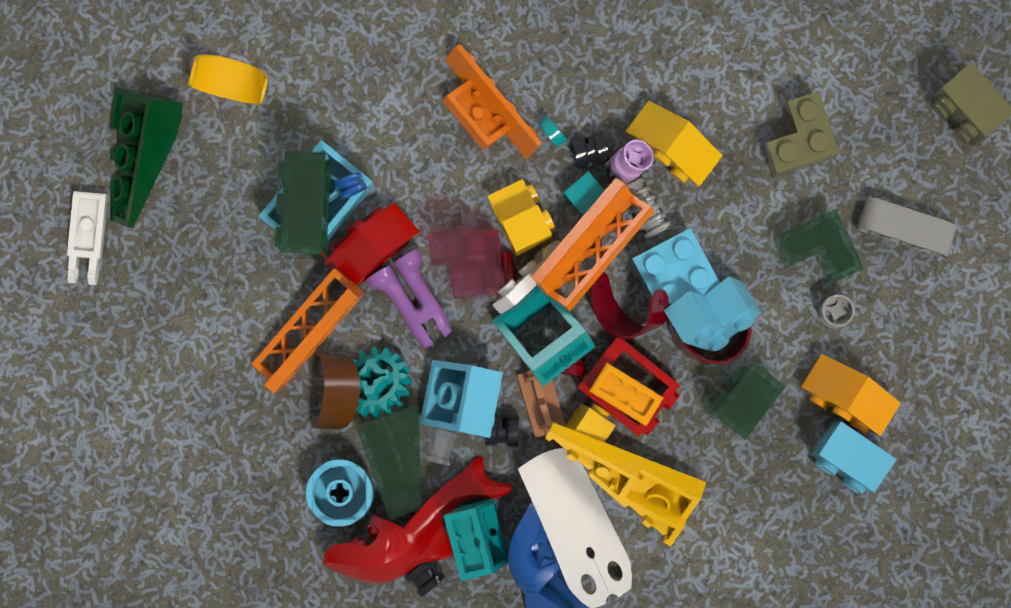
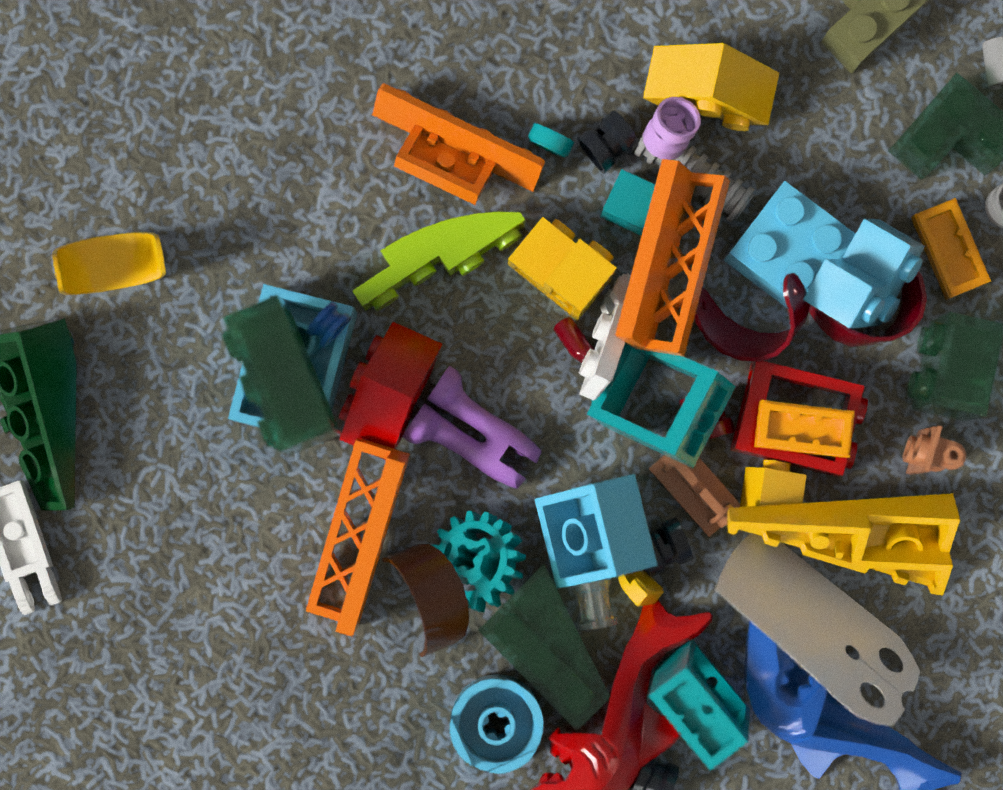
camera: 25 degrees left, 0 degrees up
(457, 168) = (452, 242): none -> lime slope
(472, 260) = (526, 348): clear pink brick -> none
(474, 448) = (640, 588): none -> yellow tile
(704, 449) = (932, 453): none -> nougat hinge
(782, 323) = (950, 249): none -> light orange plate

